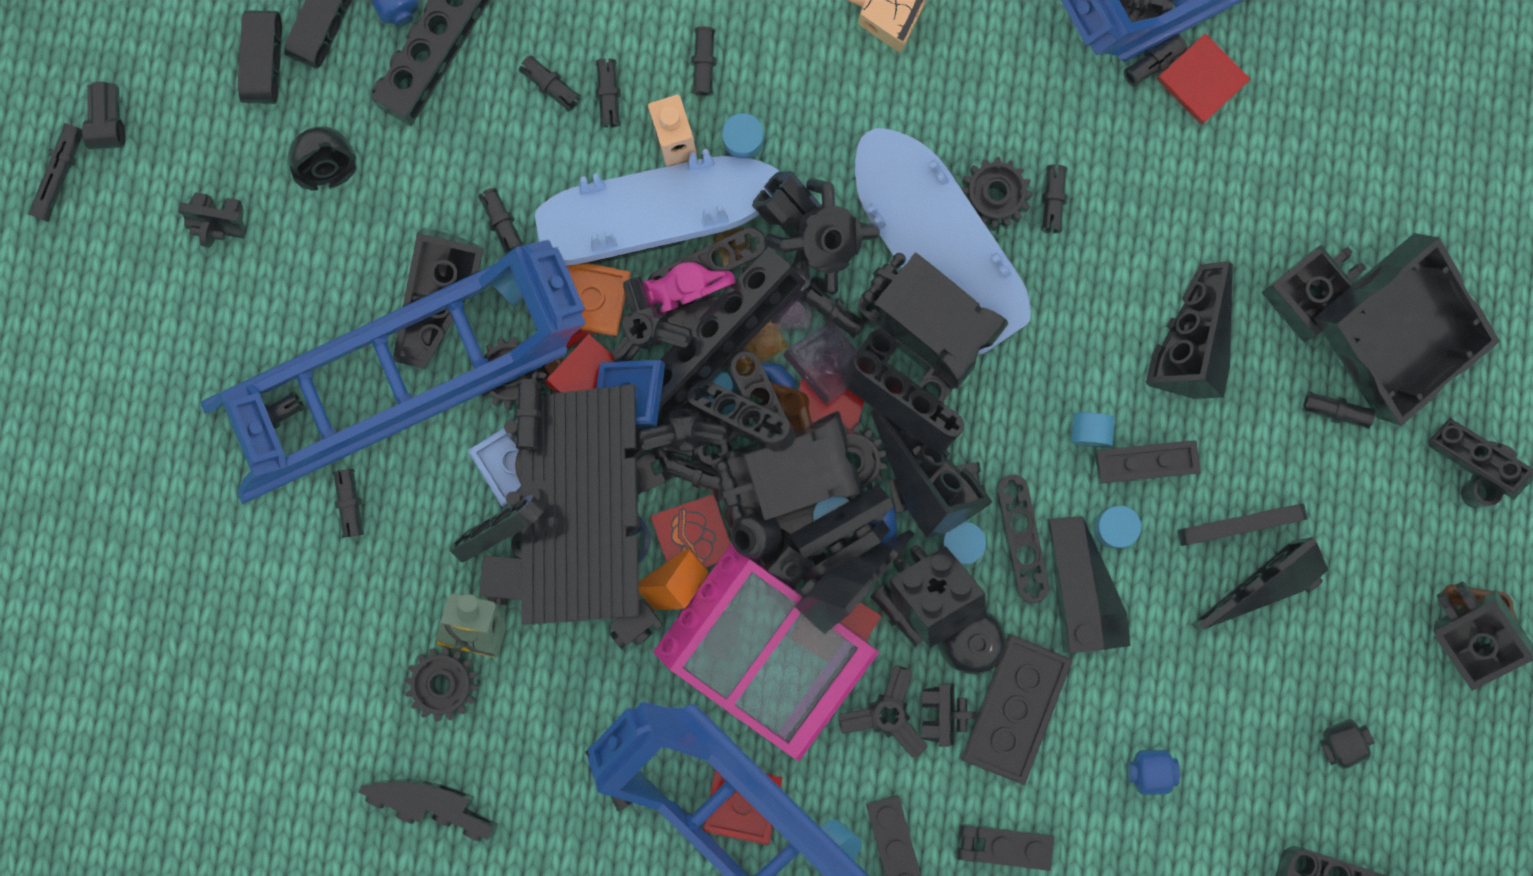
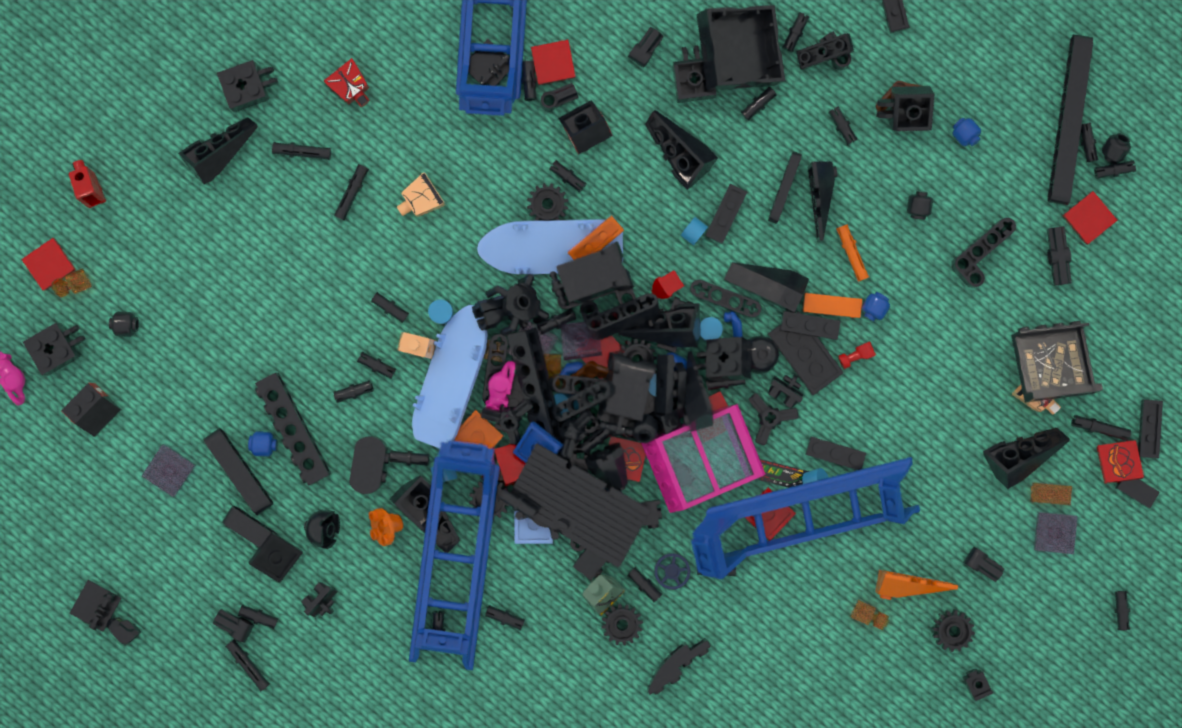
camera: 55 degrees left, 5 degrees up
(137, 145) = (258, 616): none -> black pin
(238, 116) = (275, 557): none -> black tile
(379, 245) = (384, 526): none -> orange plate
(455, 168) = (369, 465): none -> black brick
(497, 528) = (564, 552): black beam -> none
(522, 681) = (644, 584): none -> black pin
(567, 711) = (672, 571): none -> dark blue wheel
(666, 517) = (609, 466): none -> black cone
(674, 582) = (642, 481): orange slope -> none
(813, 786) = (781, 474): none -> black sticker
(987, 439) = (665, 286): none -> red tile
(996, 295) = (597, 238): none -> orange tile
(1001, 567) = (736, 323): none -> blue arm
(1006, 847) = (867, 400): black plate -> none
(1063, 690) = (810, 325): none -> black plate
(1074, 795) = (862, 351): none -> red leg
(1113, 705) = (832, 305): none -> orange tile
(1117, 527) = (748, 249): dark azure piece -> none
(1141, 181) = (585, 127): none -> black slope
(1162, 117) = (560, 96): none -> black piece
(1205, 694) = (854, 257): none -> orange pin
(1304, 196) = (643, 51): none -> black piece
(1387, 554) = (843, 125): none -> black pin
(1477, 399) = (795, 32): none -> black pin
(1501, 746) = (966, 132): none -> blue head

